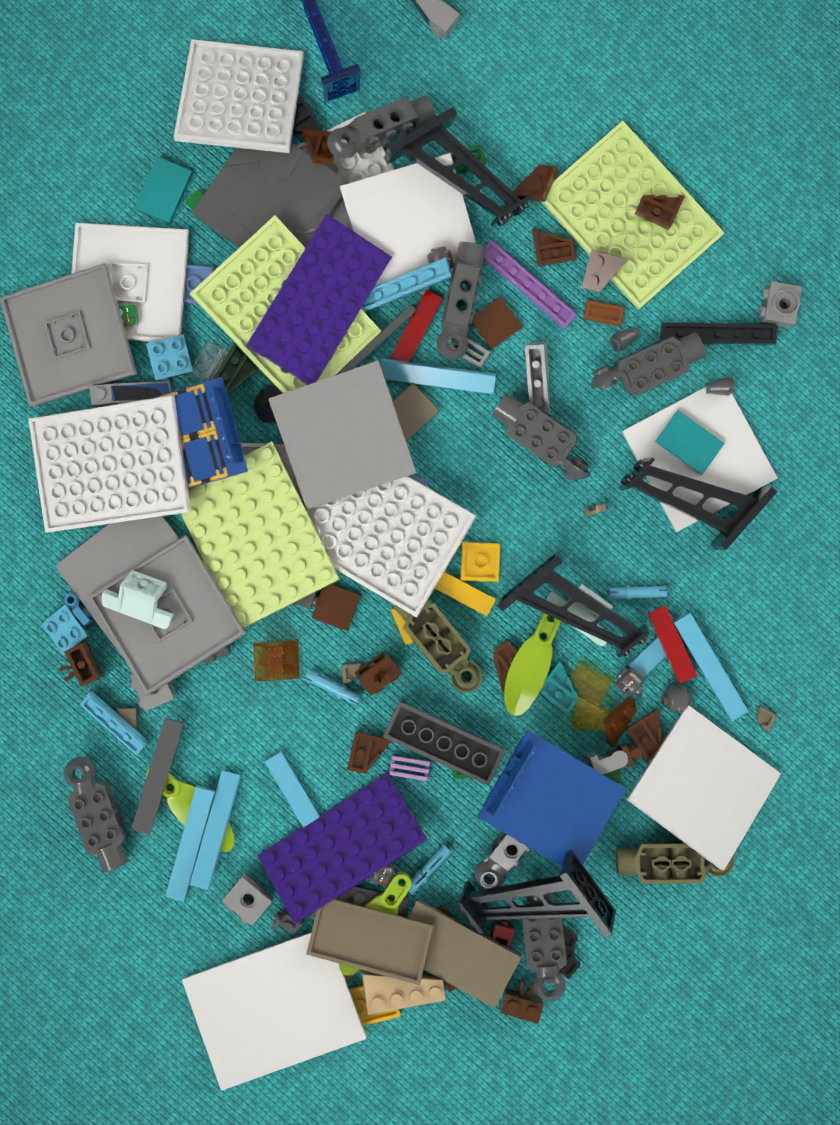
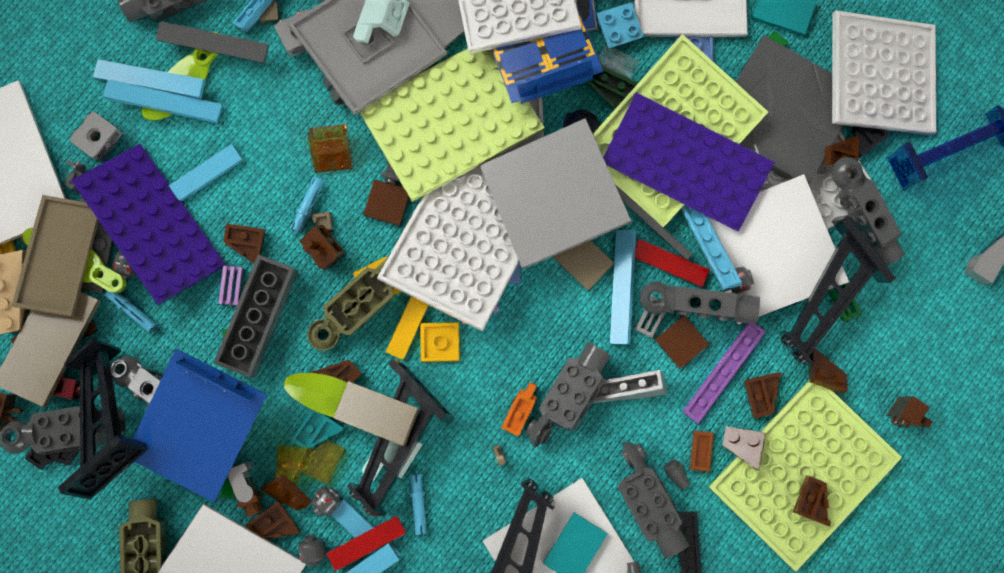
camera: 85 degrees right, 5 degrees down
(549, 626) = (376, 413): none -> tile
(553, 486) = (520, 410): none -> orange hinge
(581, 108) = (909, 412): none -> reddish brown brick

